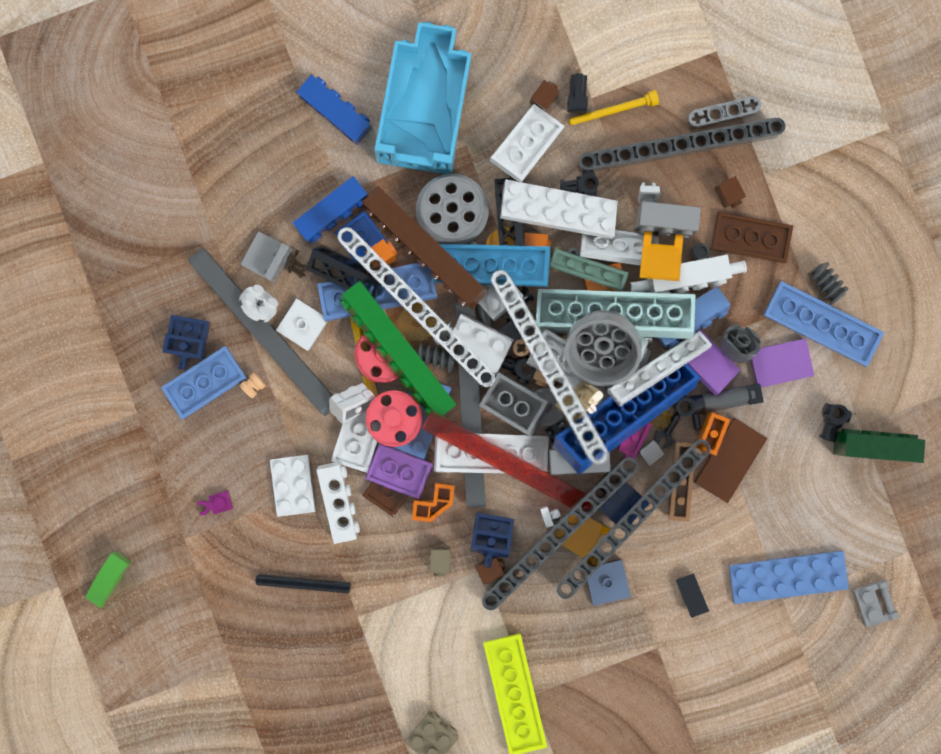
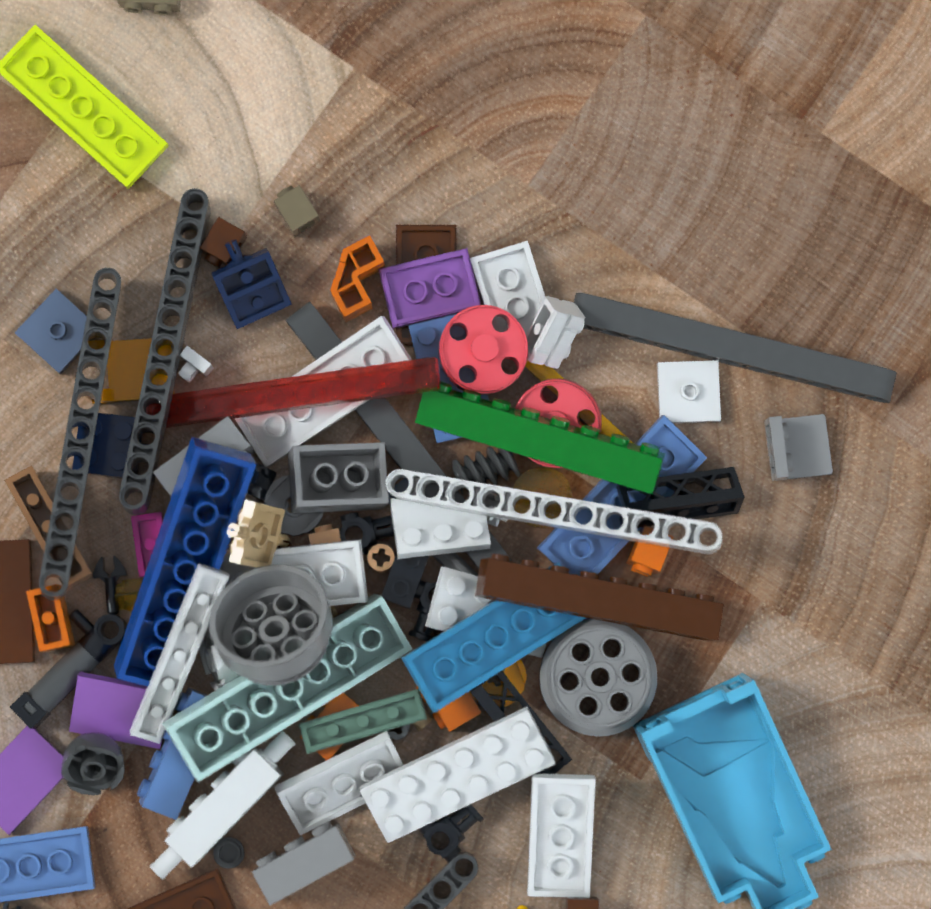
camera: 140 degrees right, 5 degrees down
(186, 339) = (825, 269): dark blue plate -> none
(204, 382) = (762, 229): medium blue plate -> none
(218, 503) = (635, 89): magenta plate -> none
(252, 385) = (697, 269): light nougat wheel -> none
(258, 295) = (752, 387): white plate -> none
(292, 485) = (554, 177): white plate -> none
(293, 261) = (758, 466): dark brown piece -> none
(303, 583) = (453, 61): black axle -> none
(330, 210) = (758, 566): blue brick -> none
(333, 109) = (847, 702): blue brick -> none
(339, 531) = (451, 159): white brick -> none
(365, 230) = (692, 569): blue tile -> none
(544, 357) = (342, 549): white beam -> none
(648, 193) = (351, 882): white tile -> none
(651, 452) = (114, 539): white slope -> none
(661, 261) = (274, 798): light orange flag -> none

